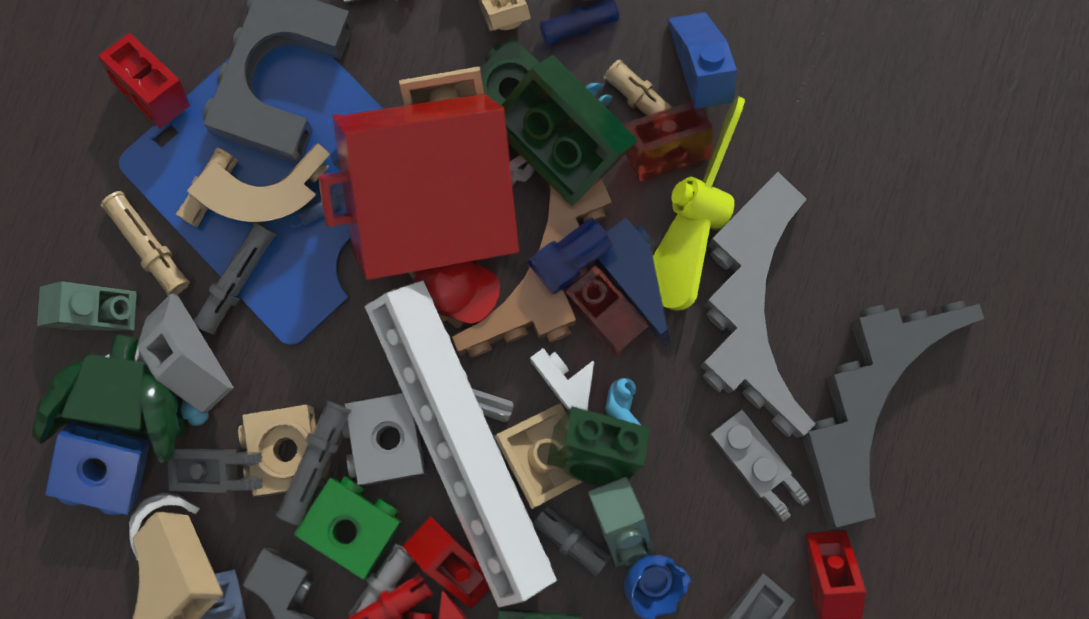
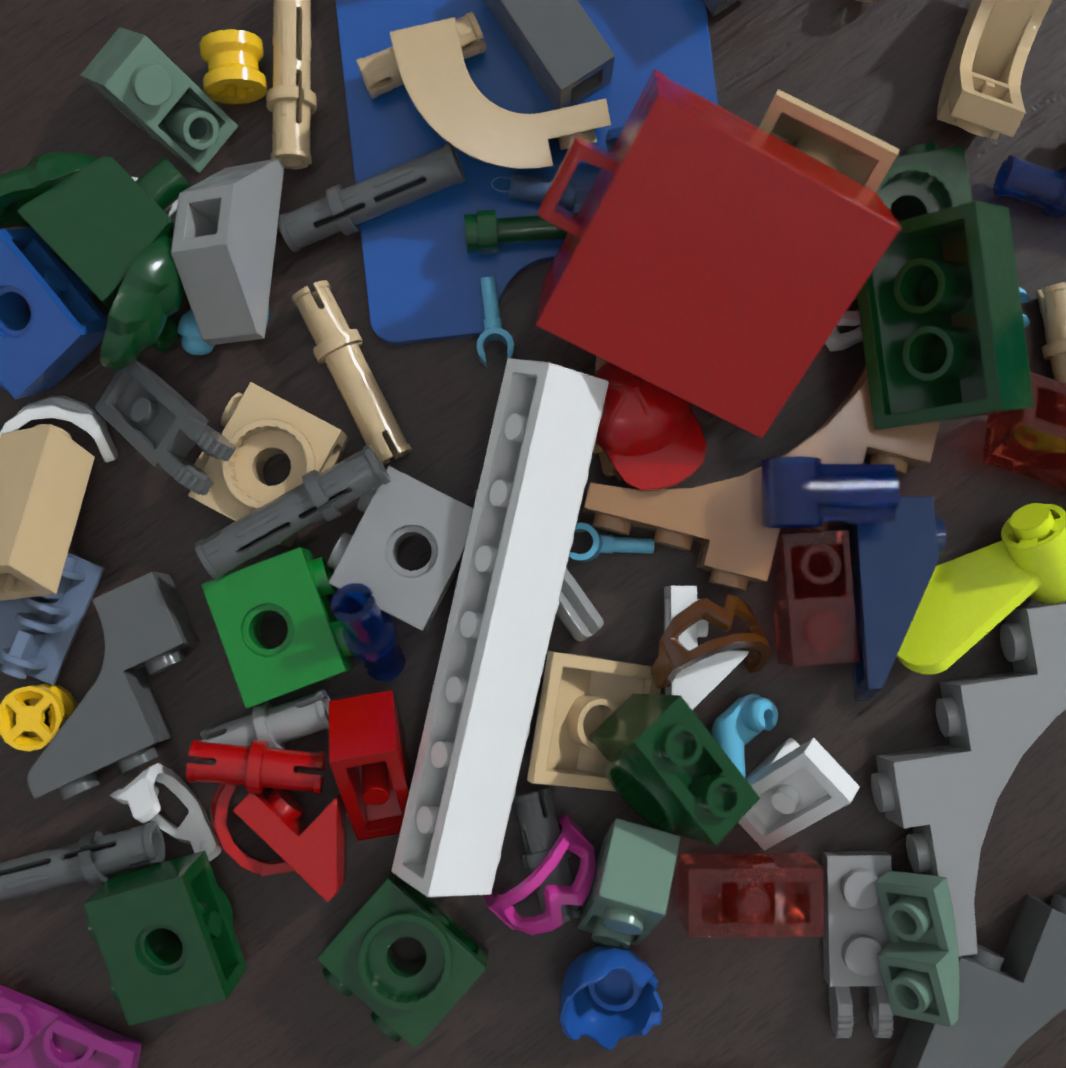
camera: 35 degrees right, 5 degrees up
(113, 263) = (233, 66): none -> yellow wheel
(276, 366) = (341, 352): none -> tan pin
(306, 251) = (486, 232): none -> dark green bar
(343, 294) = (493, 322): none -> medium azure hand
(396, 494) = (368, 631): none -> clear blue pin
(486, 361) = (609, 543): none -> medium azure hand
(558, 390) = (675, 656): none -> reddish brown helmet
(588, 555) = (555, 896): none -> dark pink helmet
(668, 415) = (795, 791): none -> white slope
(685, 481) = (751, 895): none -> clear red brick
(792, 447) = (923, 953): none -> sand green slope

